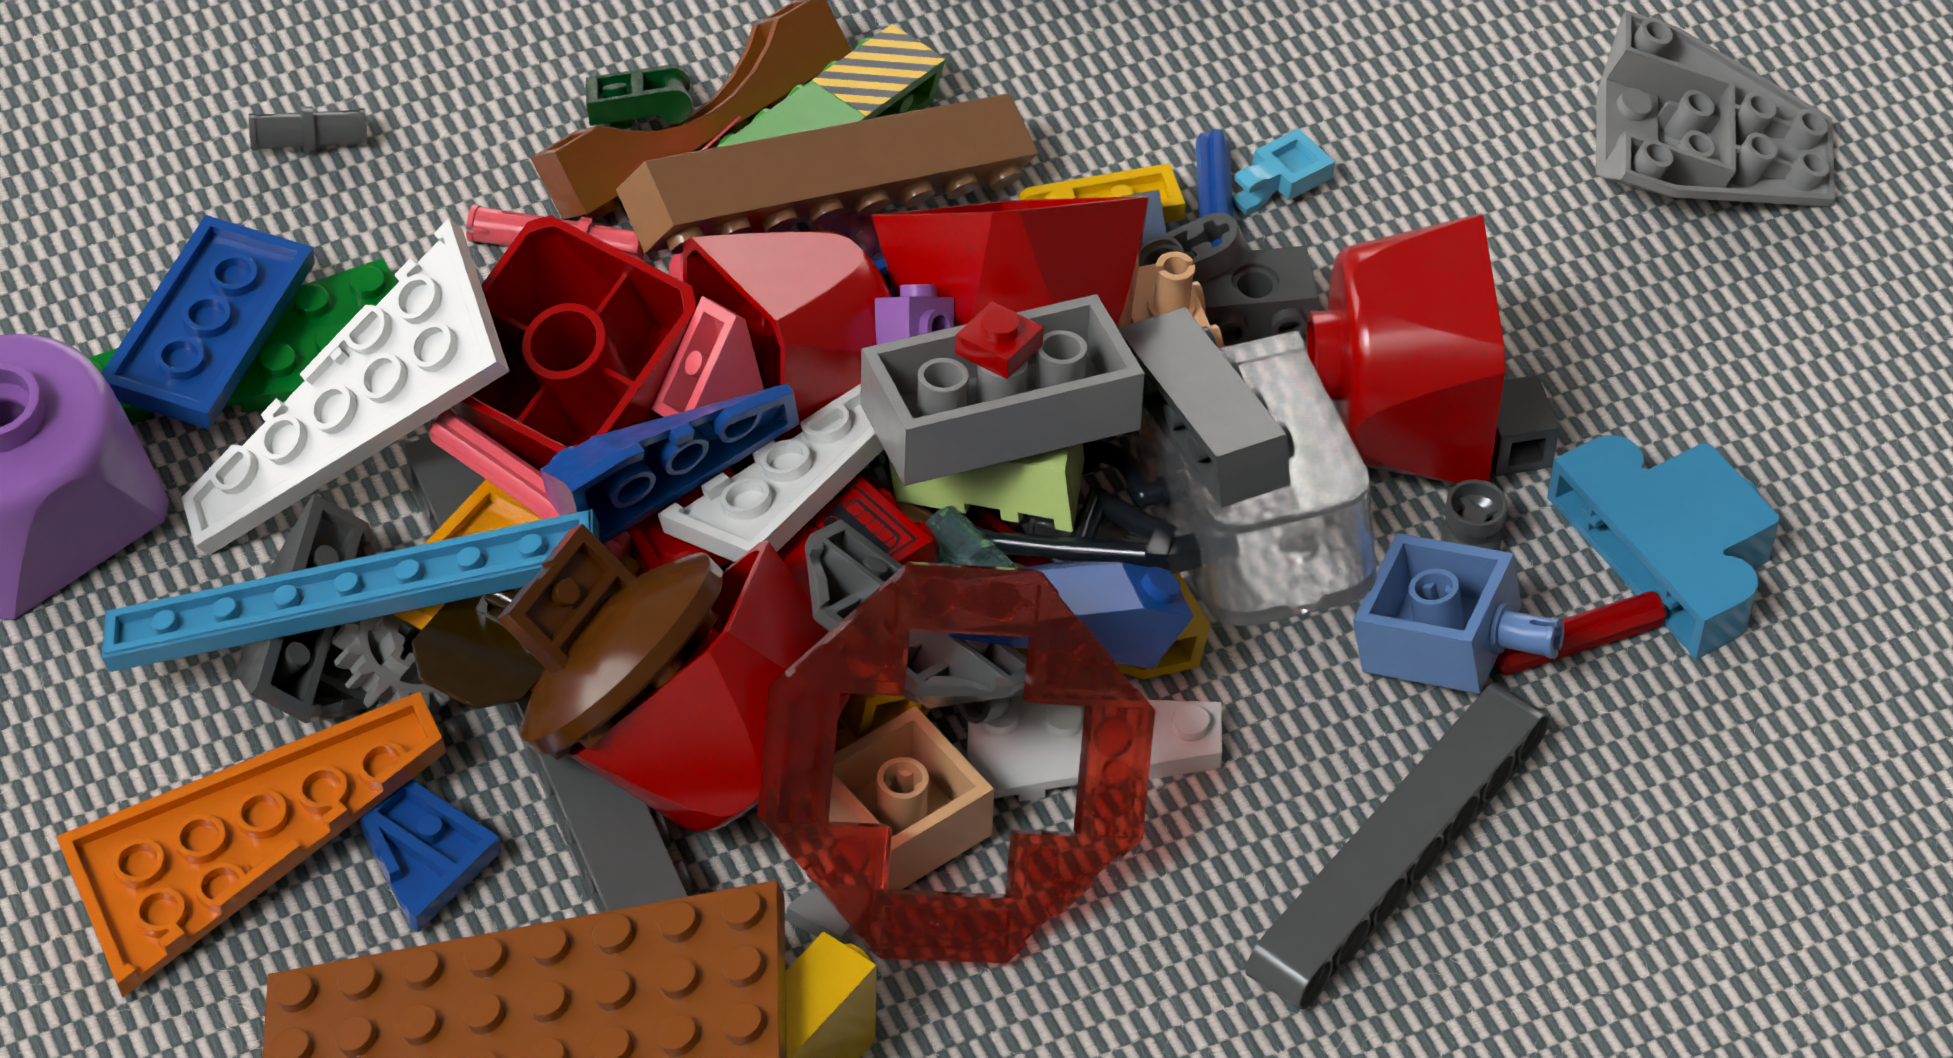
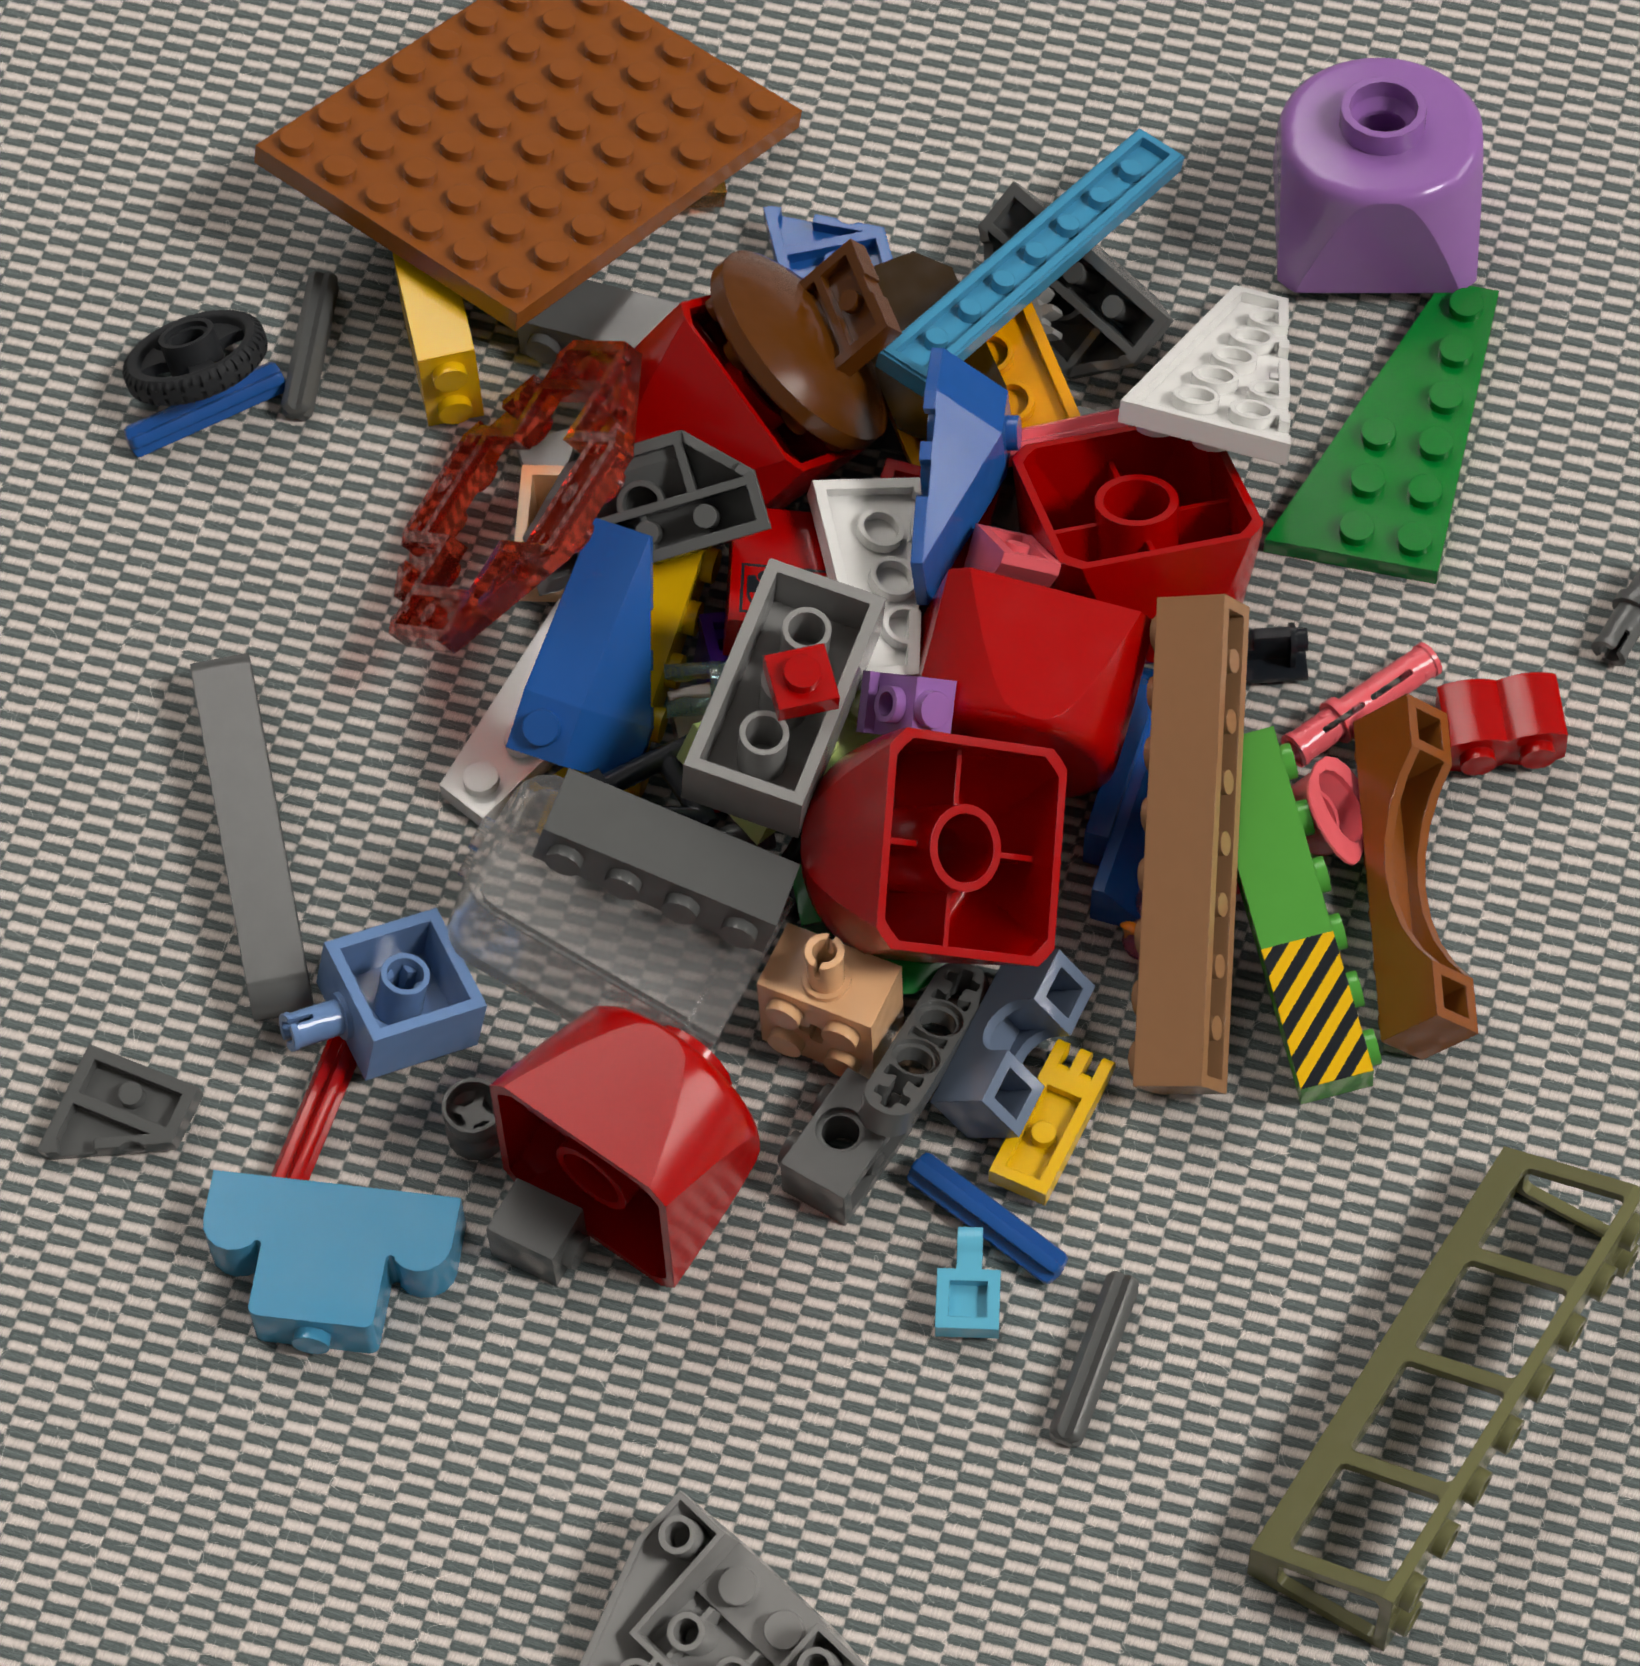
camera: 135 degrees right, 10 degrees up
(201, 852) = (934, 134): orange wing -> none
(207, 321) = (1441, 387): blue plate -> none
(492, 142) = (1504, 722): none -> red brick
(625, 96) = (1473, 830): dark green plate -> none
(1254, 84) = (1094, 1359): none -> dark grey axle
(1712, 755) = (119, 1110): none -> dark grey wing

